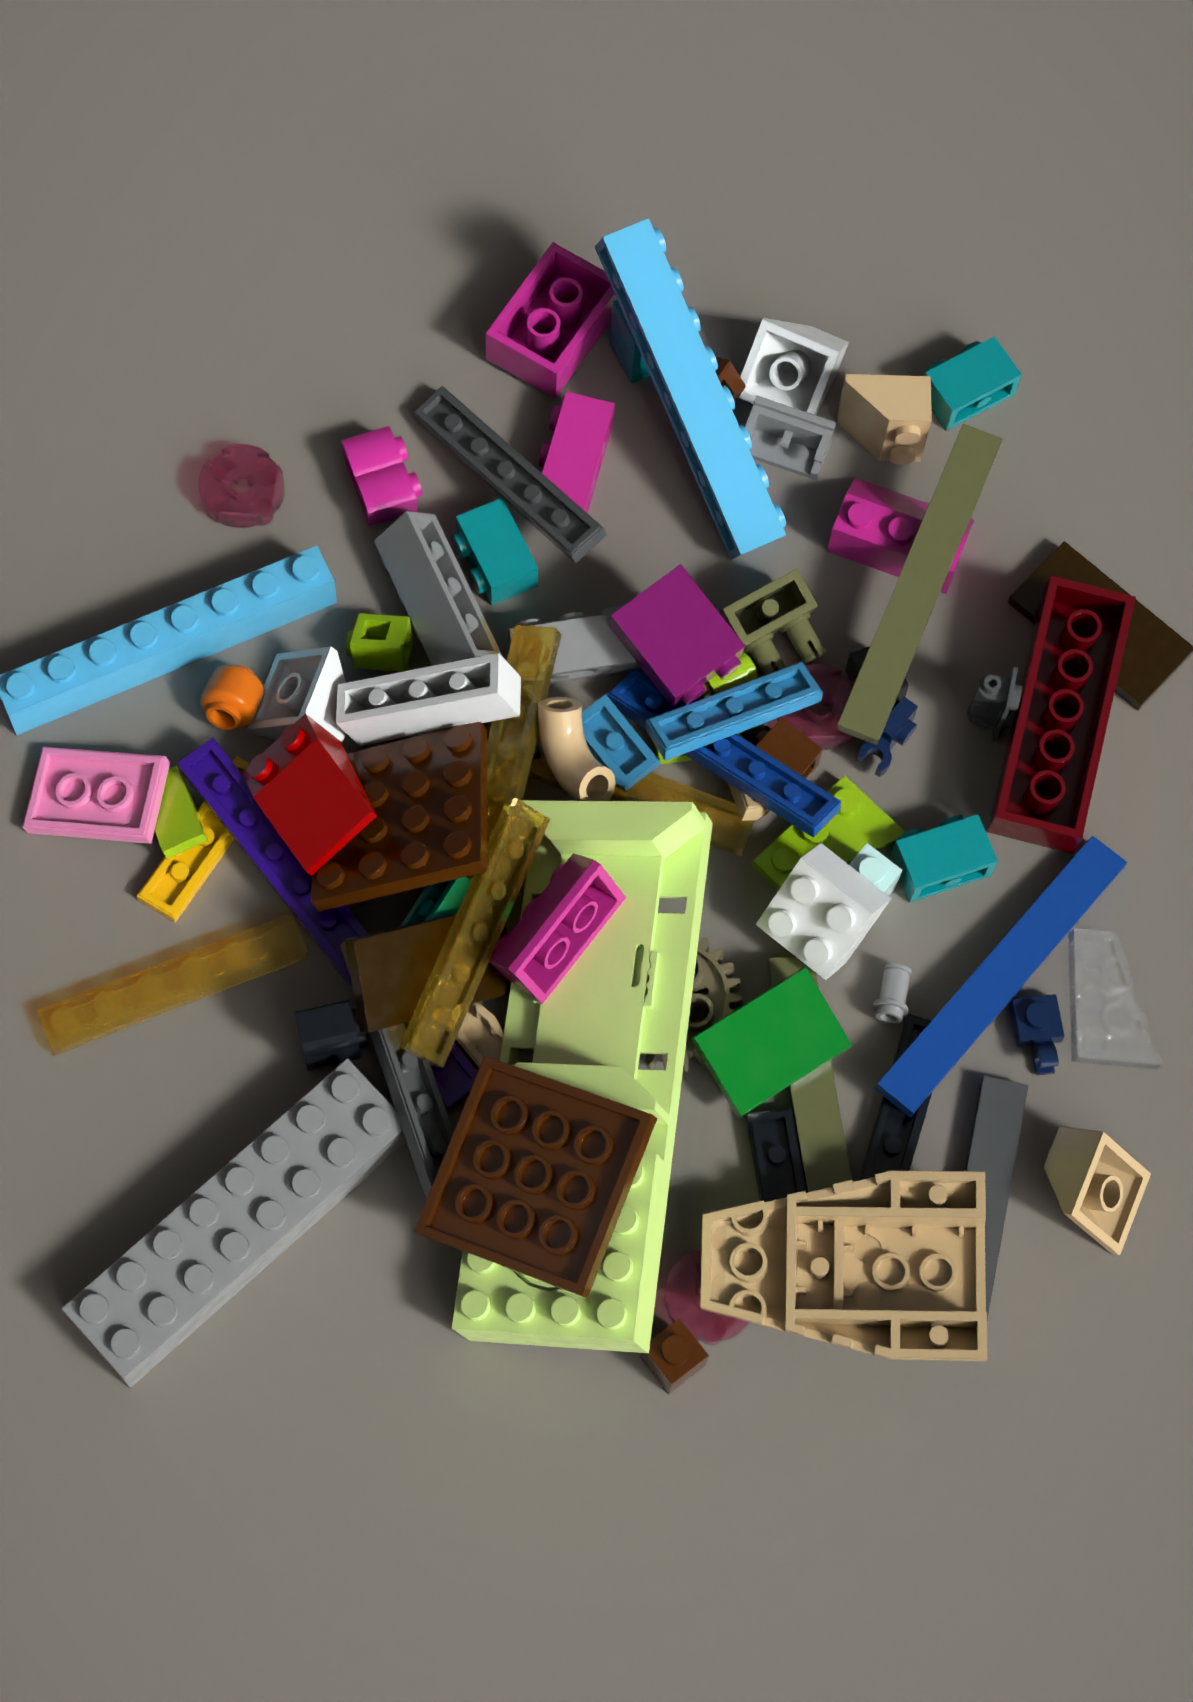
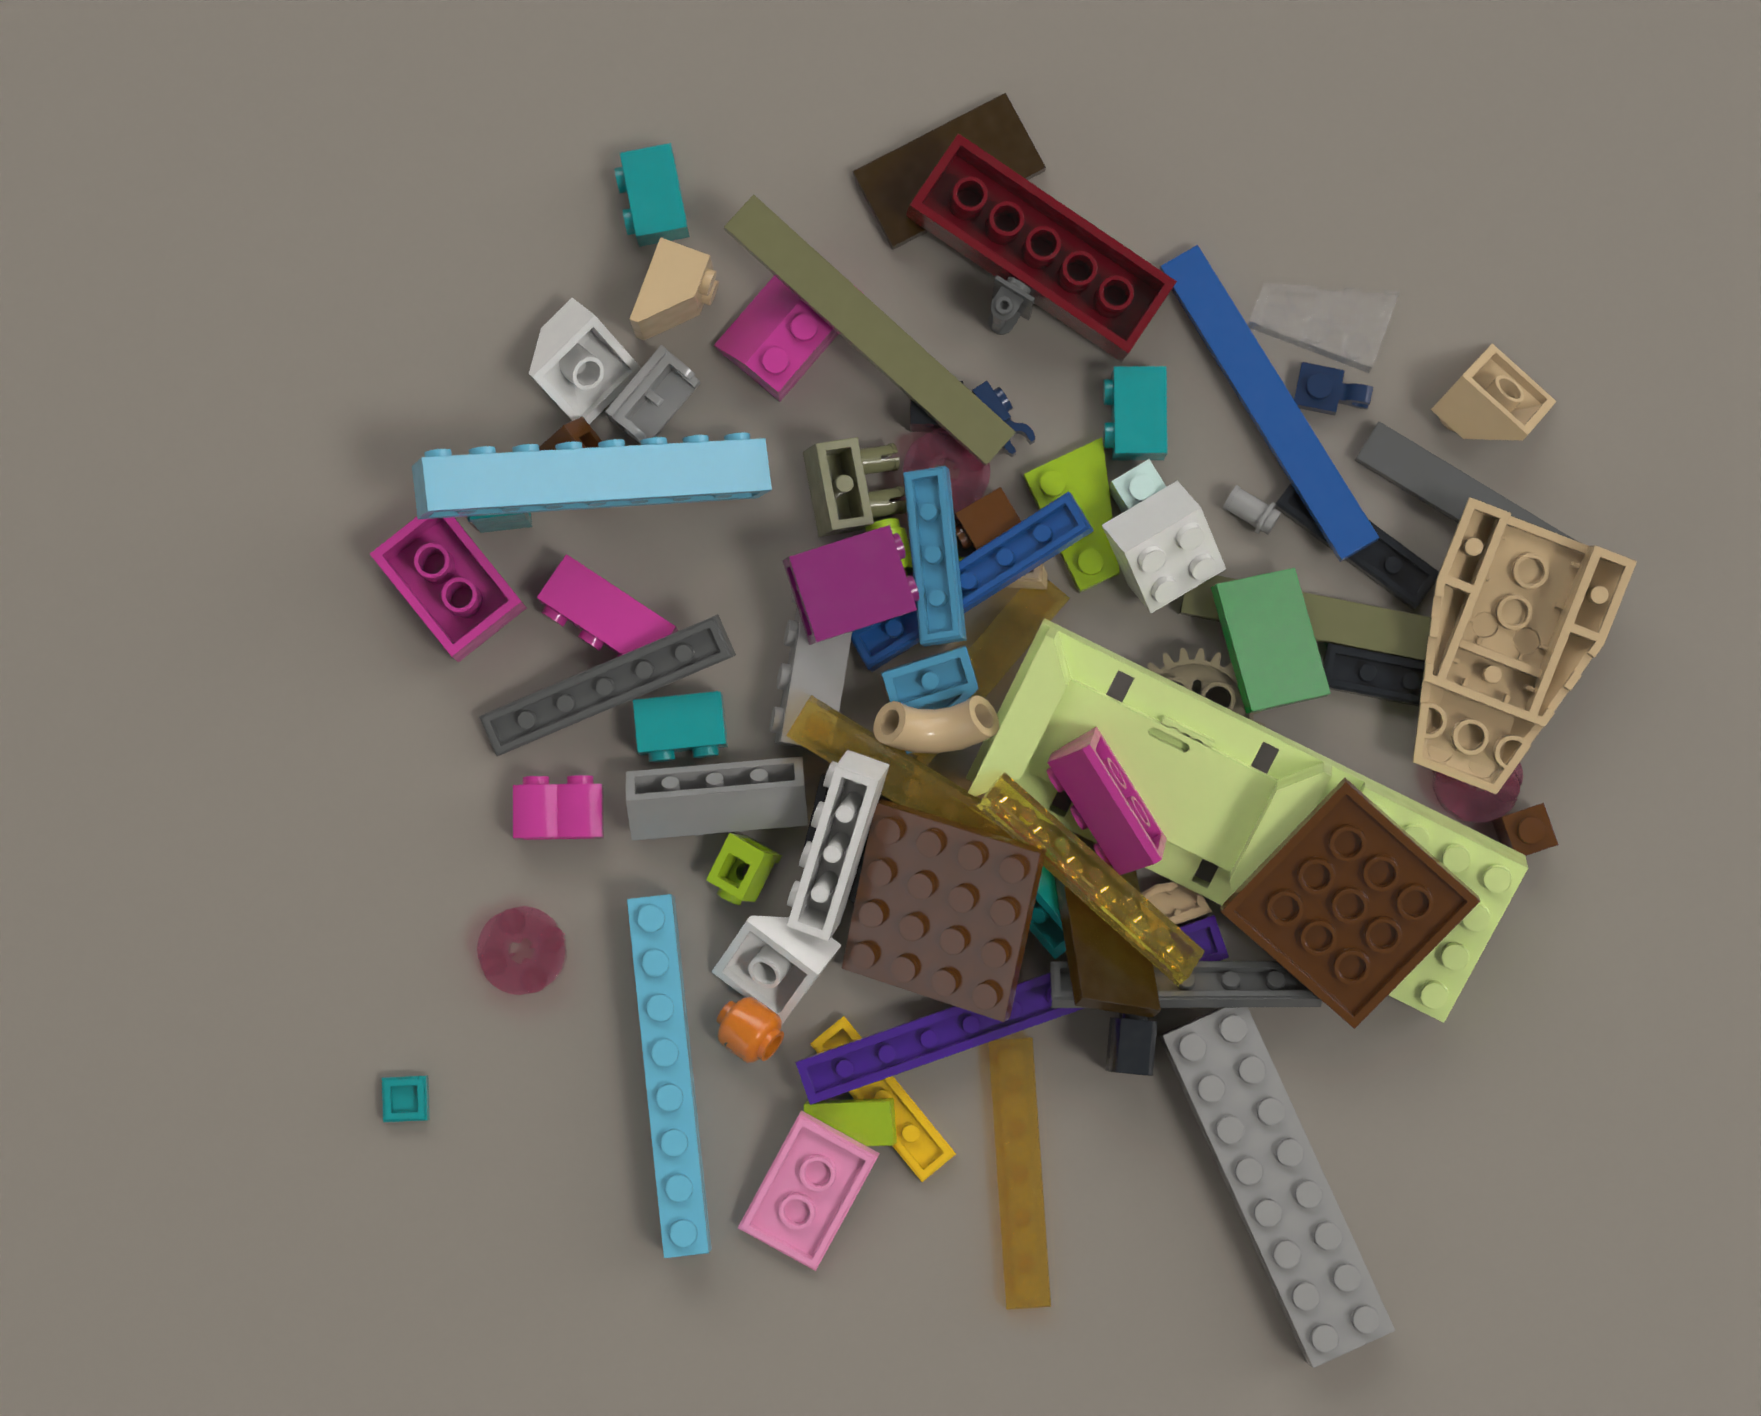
camera: 65 degrees left, 15 degrees up
(75, 436) = (405, 1098): none -> teal tile
(309, 792) = (893, 987): red slope -> none

